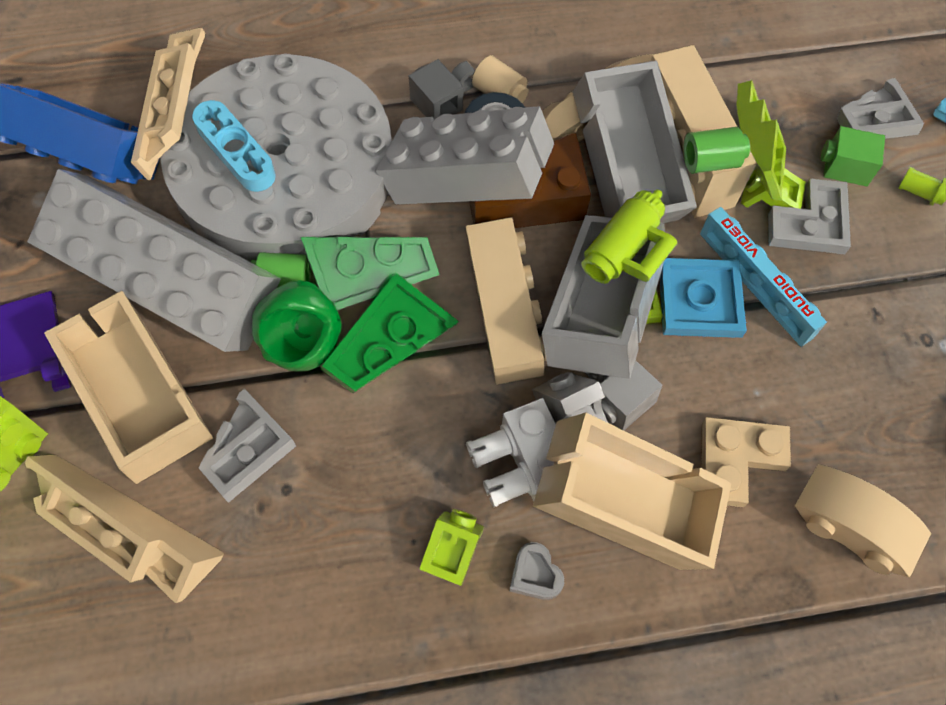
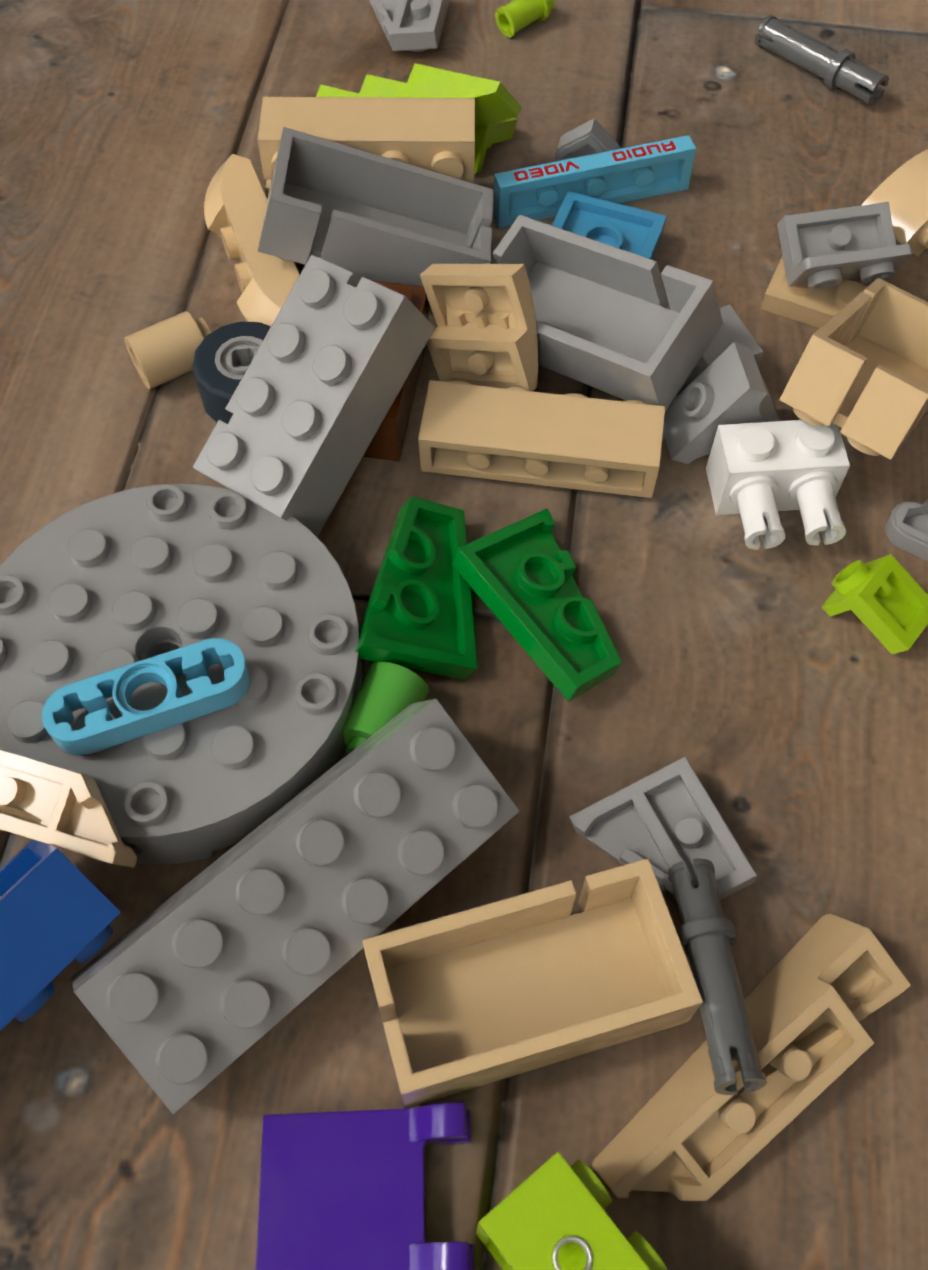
camera: 70 degrees left, 5 degrees down
(140, 479) = (708, 943): none -> dark grey pin
(296, 326) = (508, 700): green piece -> none
(438, 90) = (141, 426): dark grey brick -> none
(566, 234) = (483, 324): none -> tan slope
(625, 236) = (529, 237): lime piece -> none
(715, 149) = (453, 116): bright green brick -> none
(757, 451) = (840, 245): none -> light grey bracket
(792, 263) = (585, 140): none -> light grey tile
(818, 227) = (544, 116): light grey plate -> none
(853, 156) = (463, 42): bright green brick -> none

